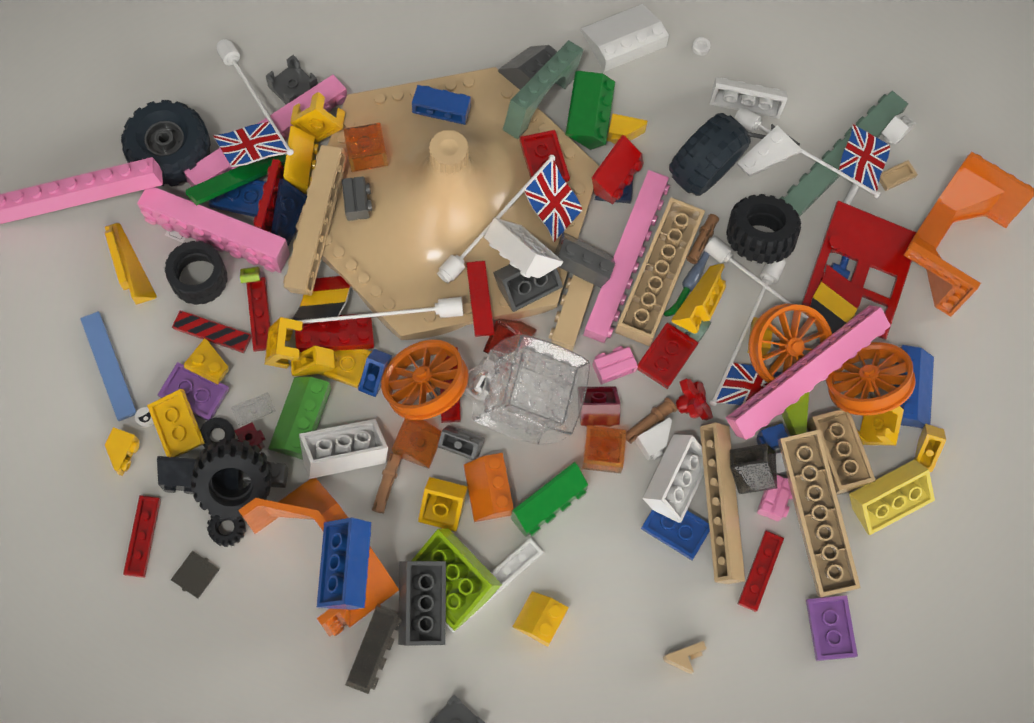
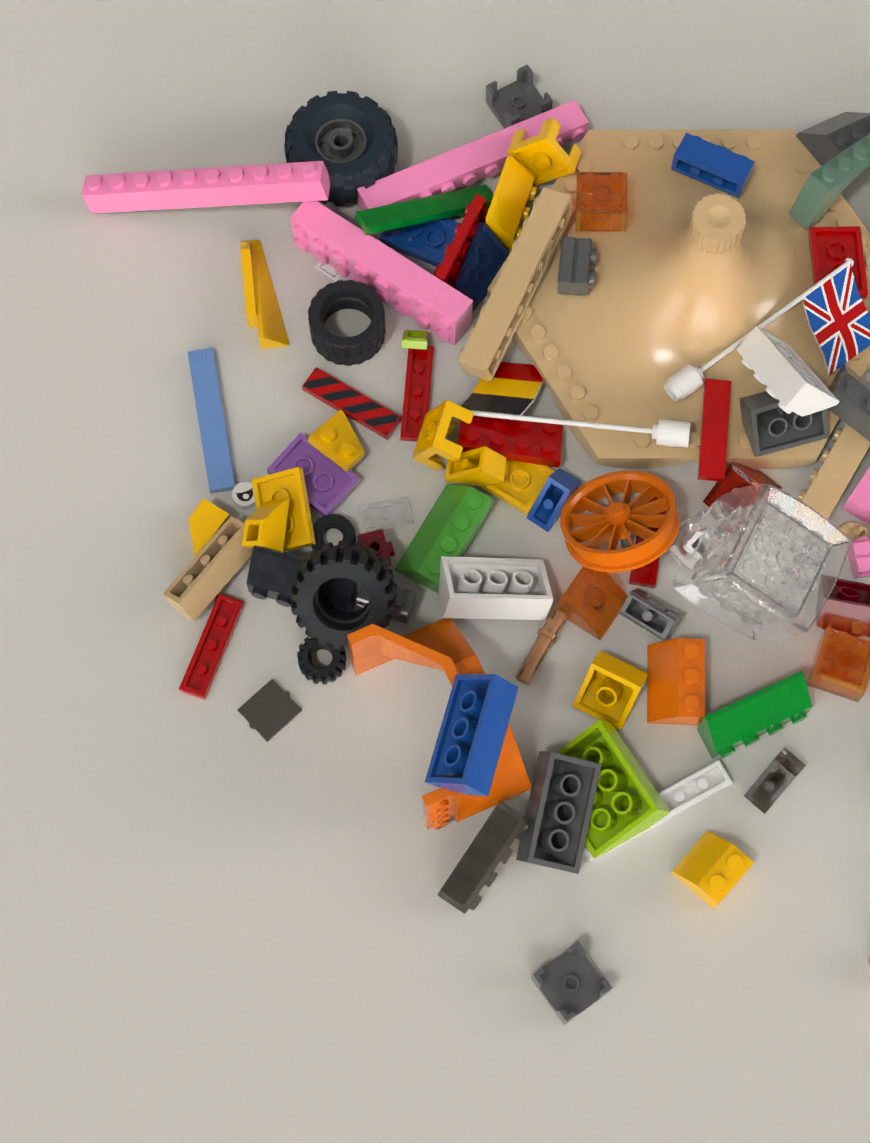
camera: 20 degrees right, 0 degrees up
(130, 478) = (209, 570): none -> tan brick
(165, 439) = (267, 526): none -> yellow slope
(255, 140) = (456, 166): flag -> none
(572, 543) = (774, 780): none -> clear smoke slope
(591, 350) = (853, 530): none -> tan arm

